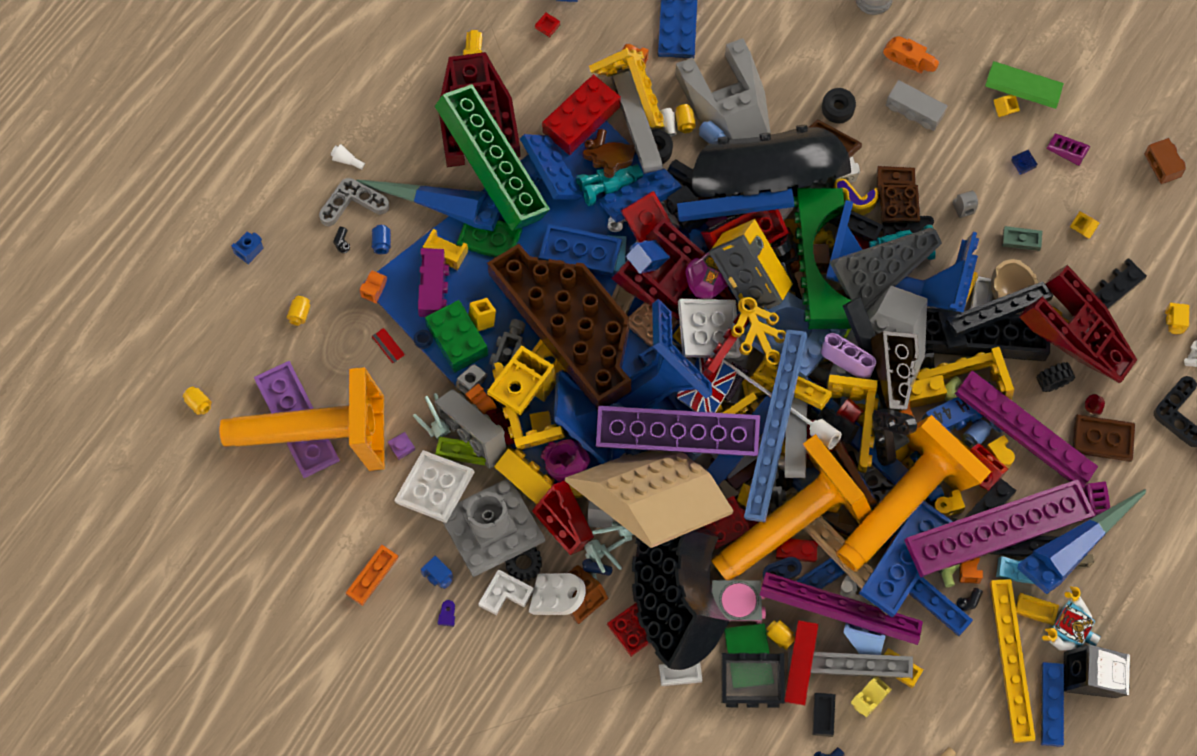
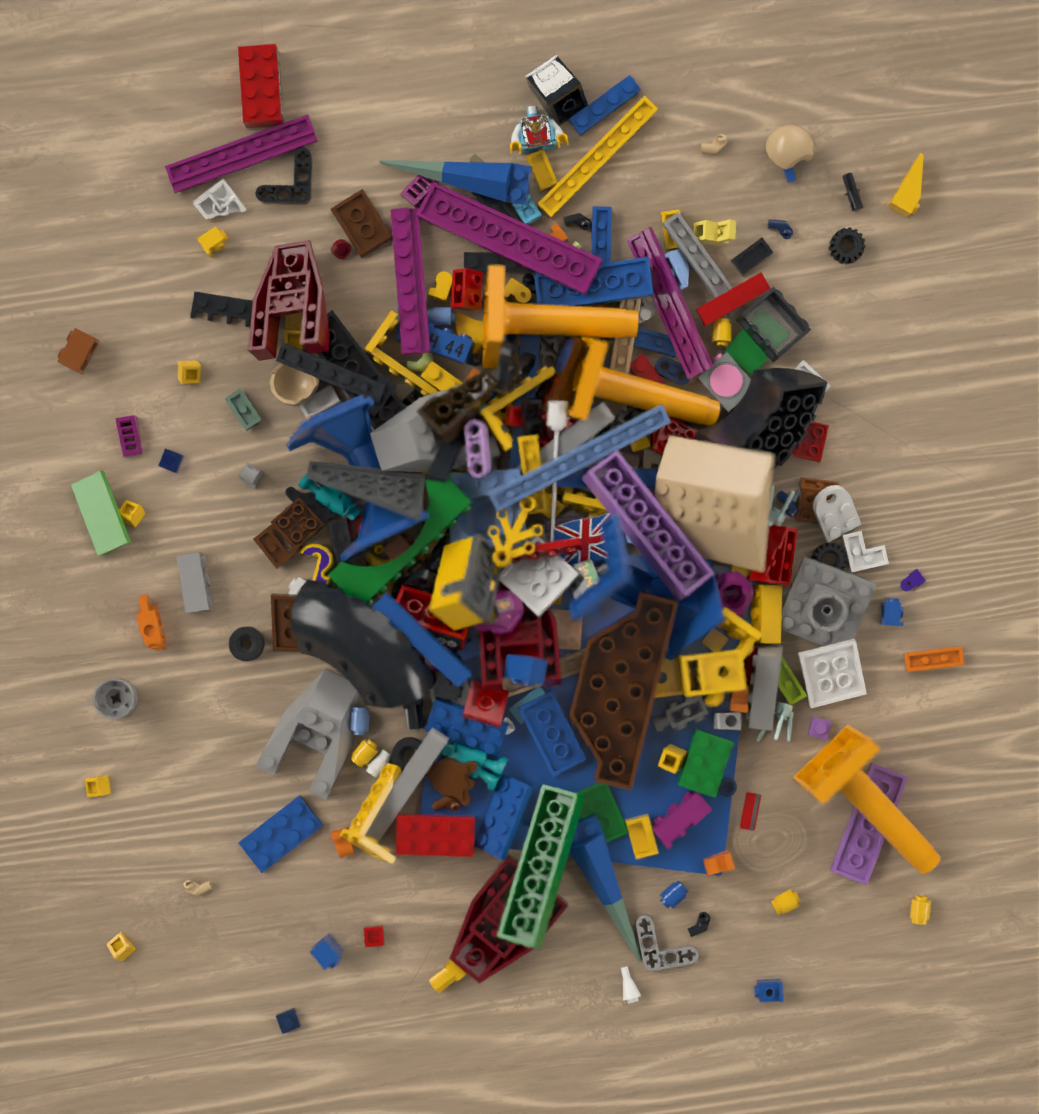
camera: 125 degrees left, 20 degrees up
(1055, 377) = (346, 292): black tyre -> none

